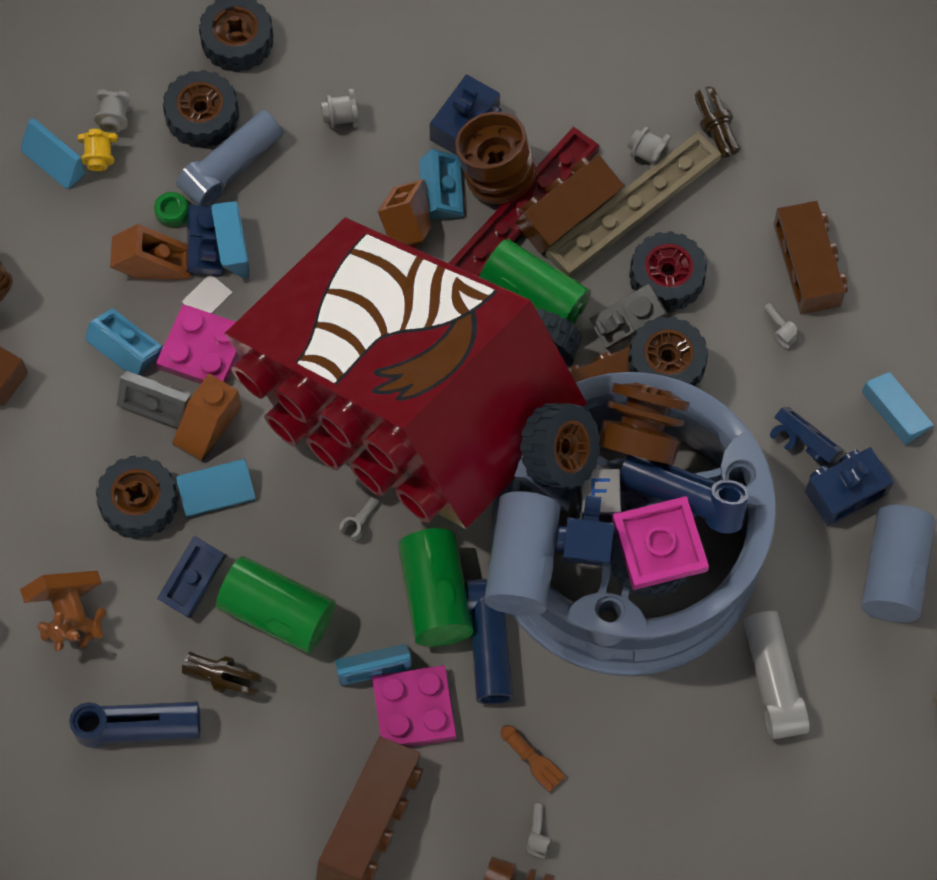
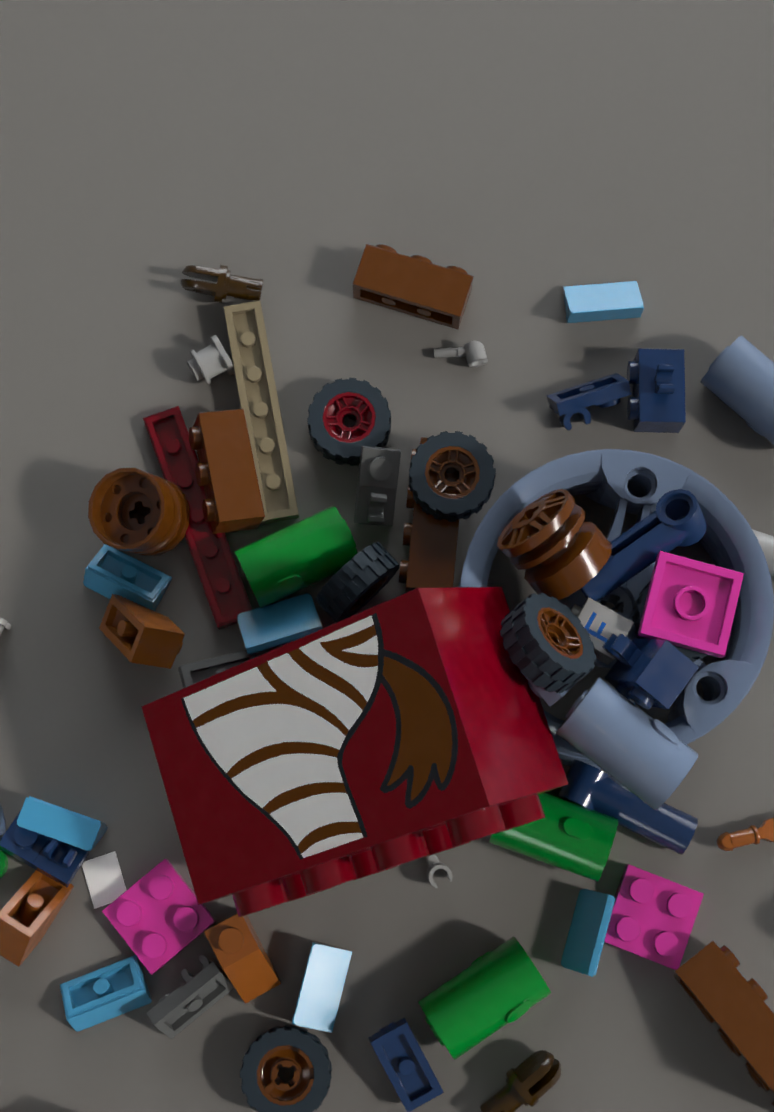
camera: 60 degrees left, 10 degrees up
(464, 103) = (64, 509): dark blue brick -> none

